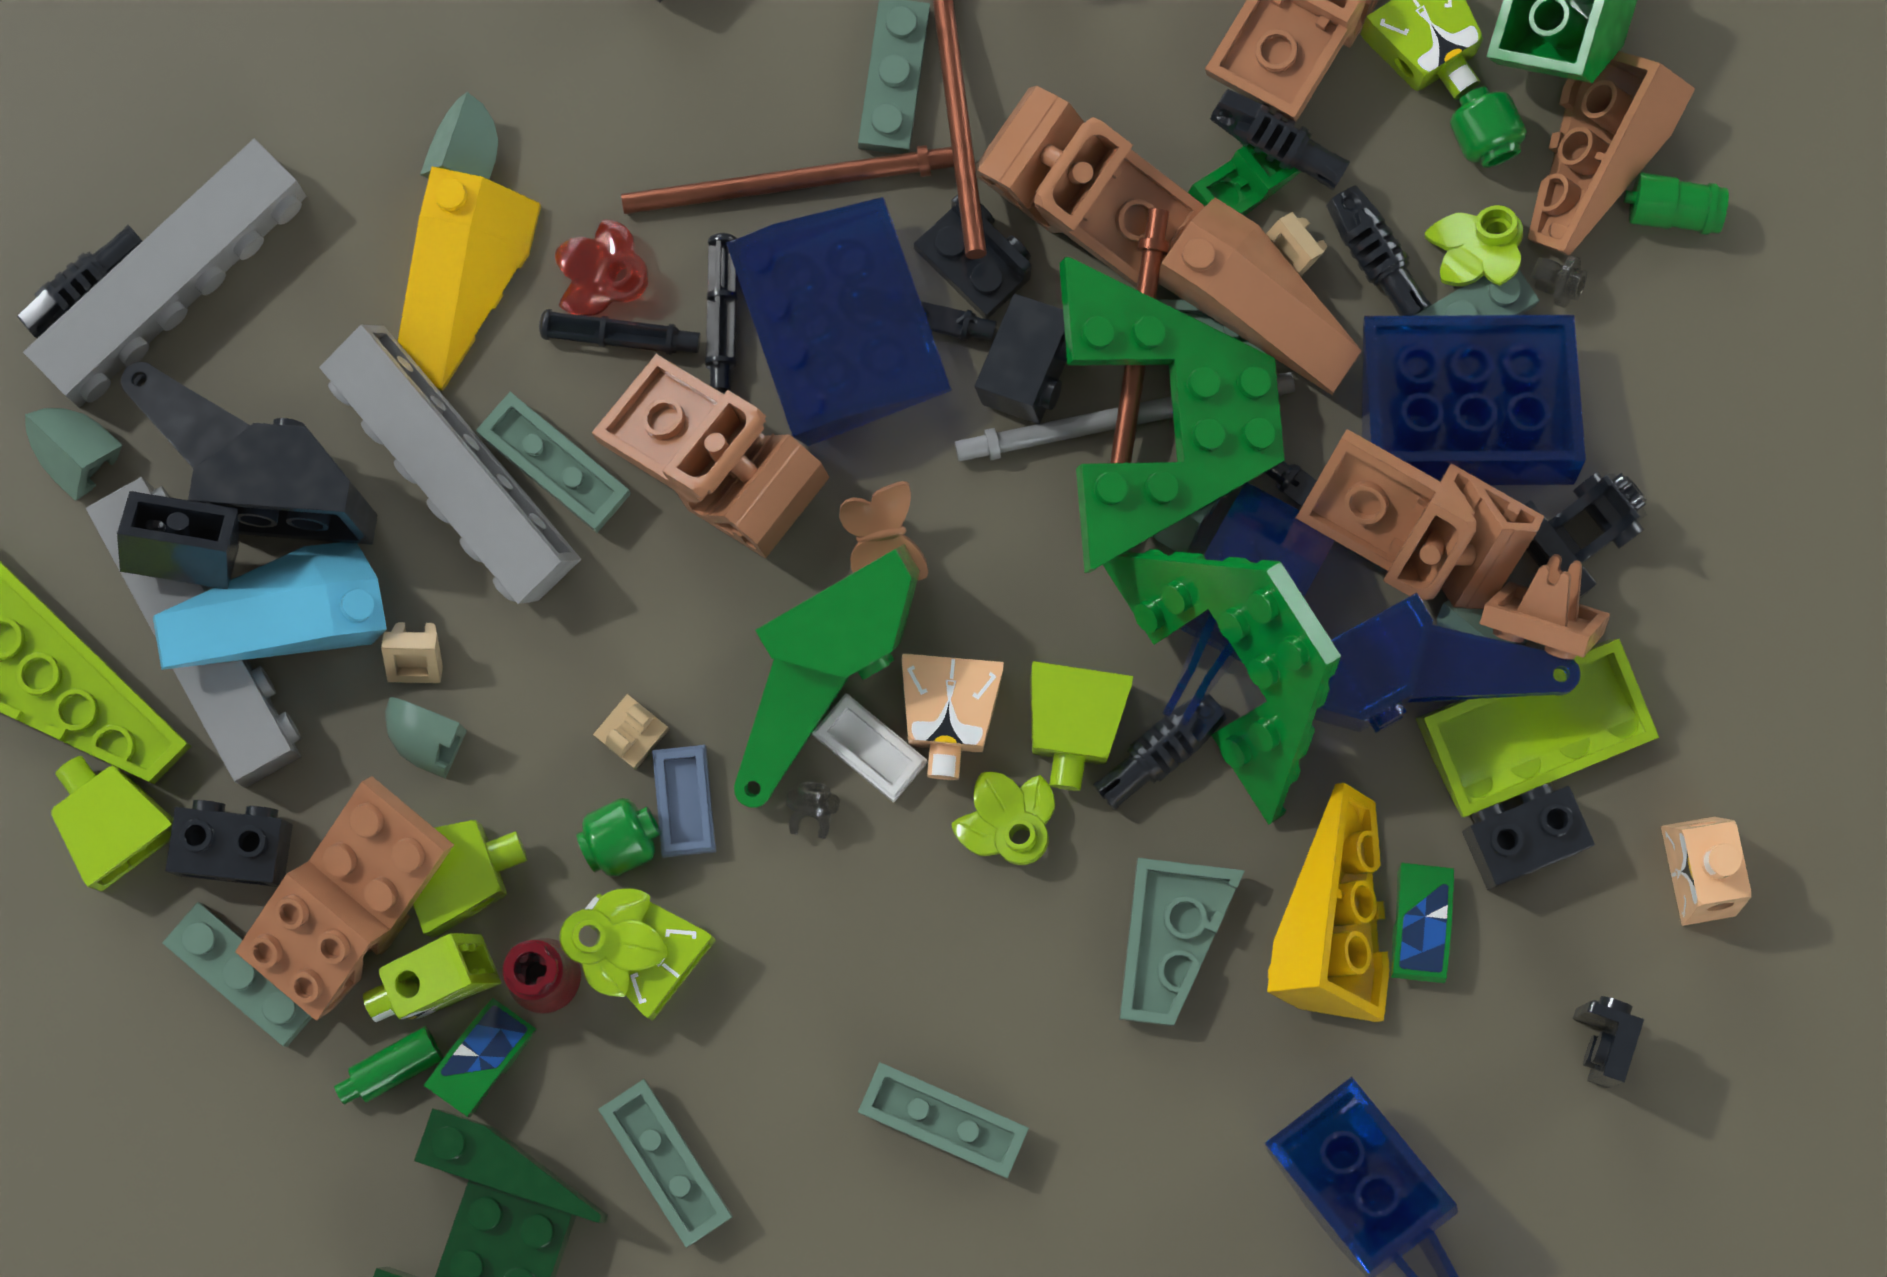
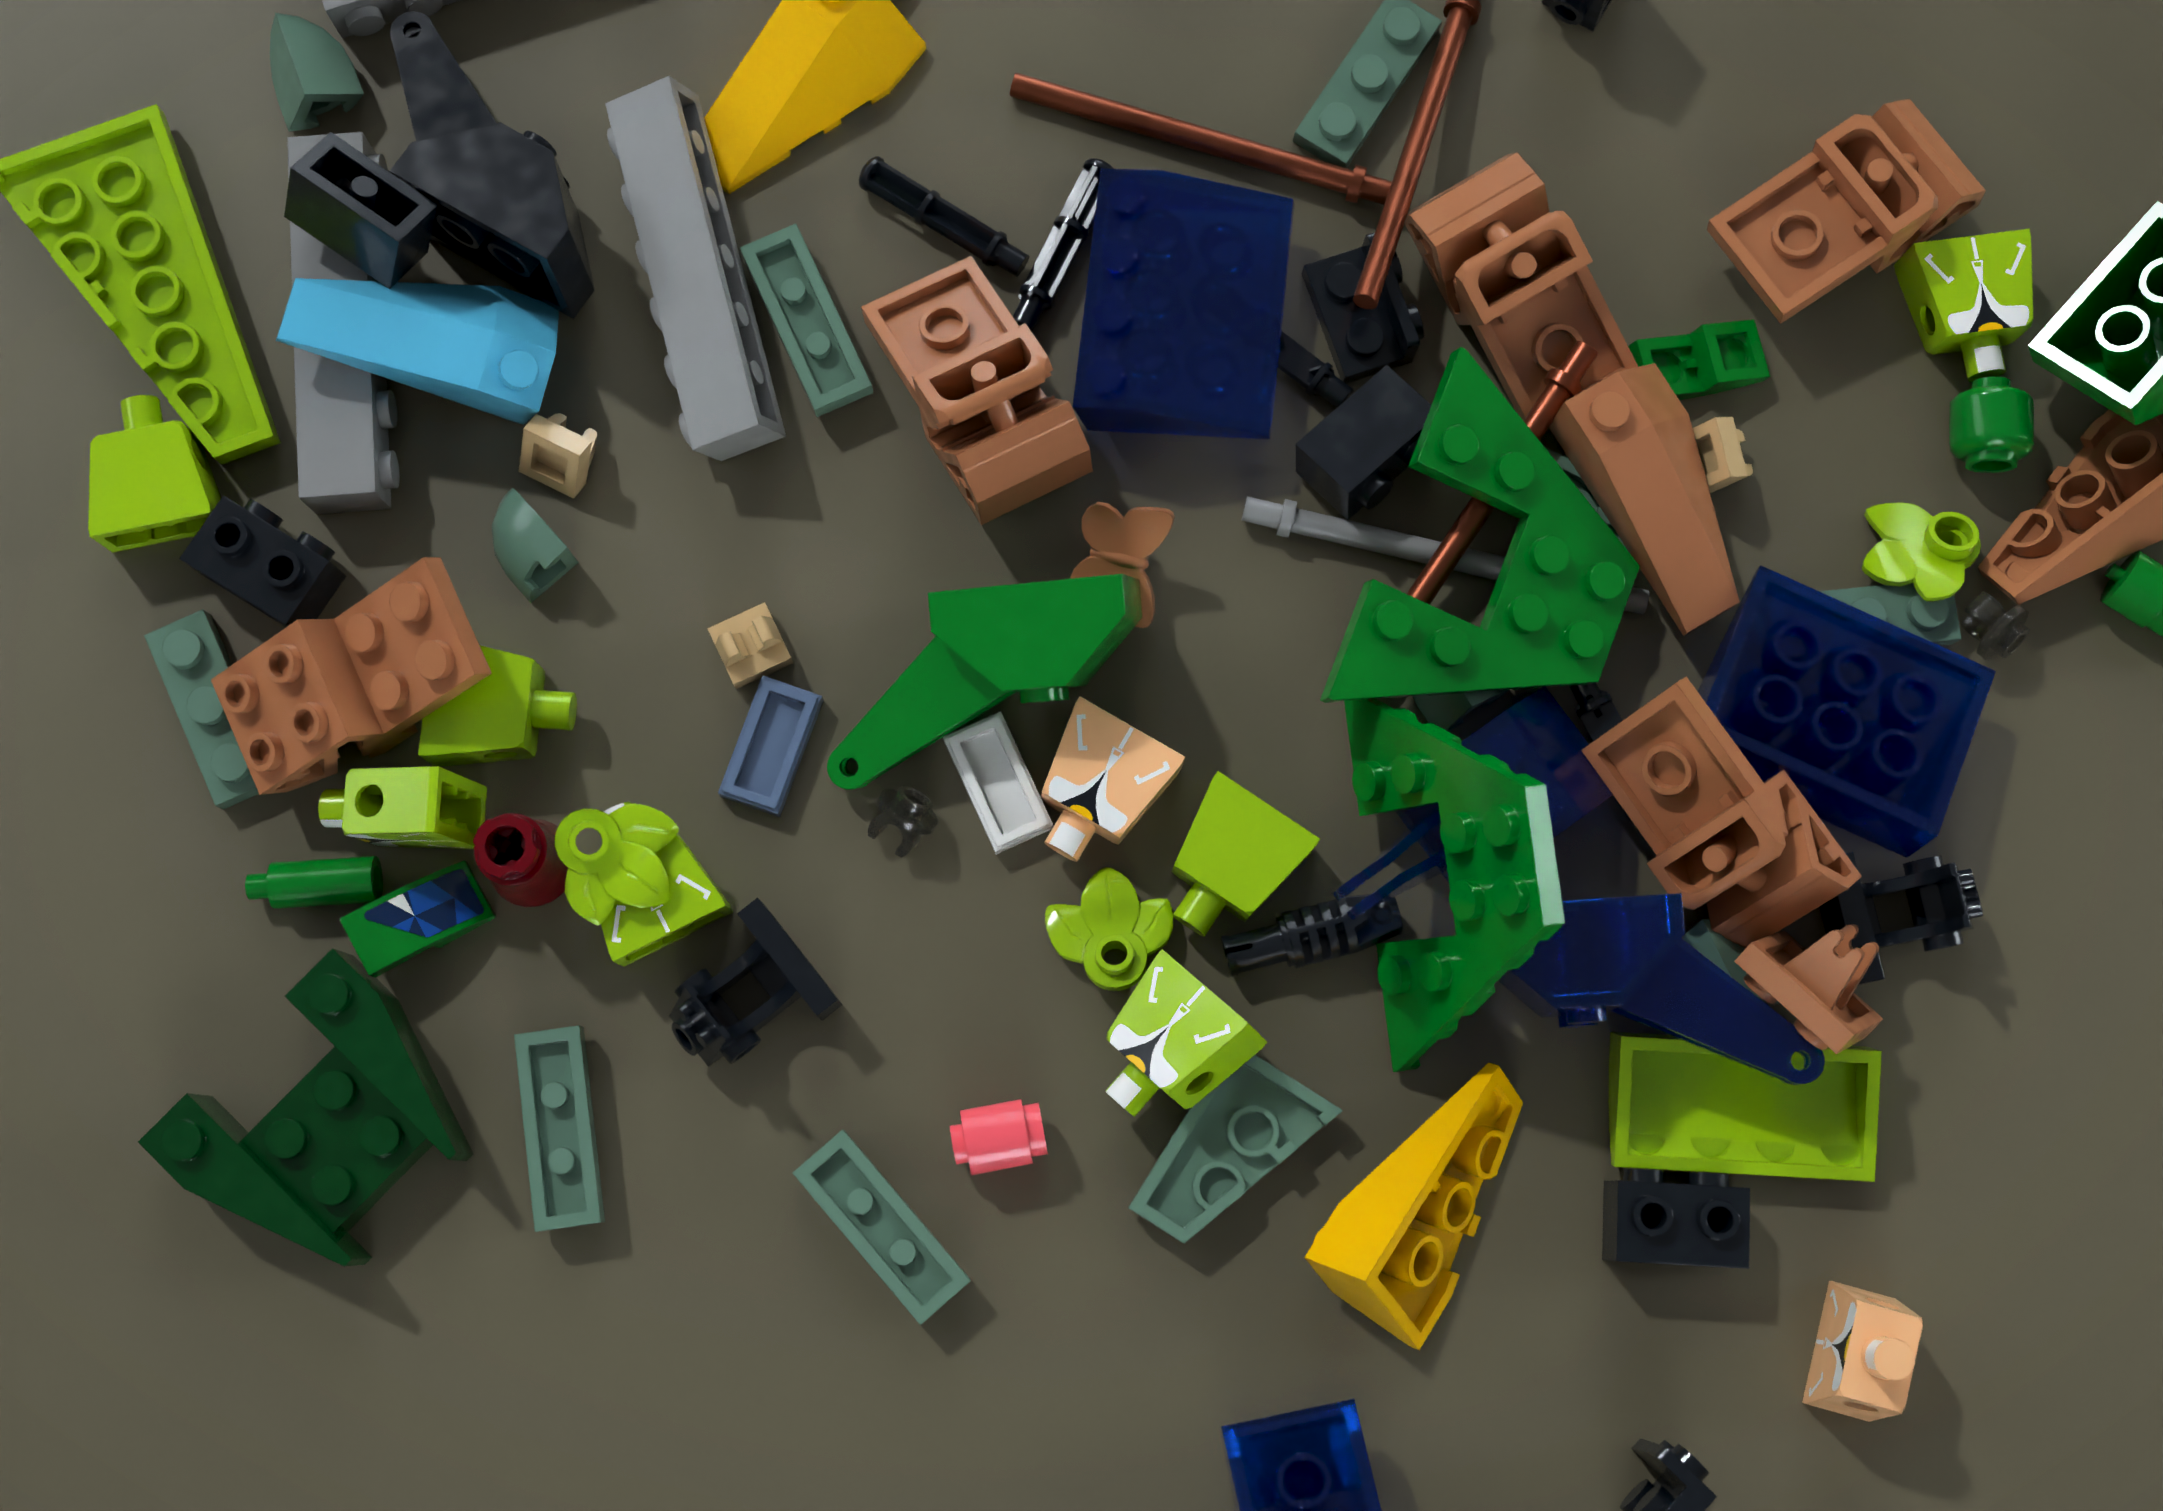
camera: 20 degrees right, 0 degrees up
(594, 266) = (950, 137): clear red plate -> none
(618, 837) = (679, 751): green head -> none
(774, 964) = (706, 1022): none -> black tile
(998, 1011) = (998, 1136): none -> coral brick
(1097, 875) = (1176, 1038): none -> lime torso
(1280, 140) = (1735, 304): black hinge -> none
(1376, 250) = (1805, 501): black hinge -> none
(1422, 923) = (1513, 1262): slope -> none

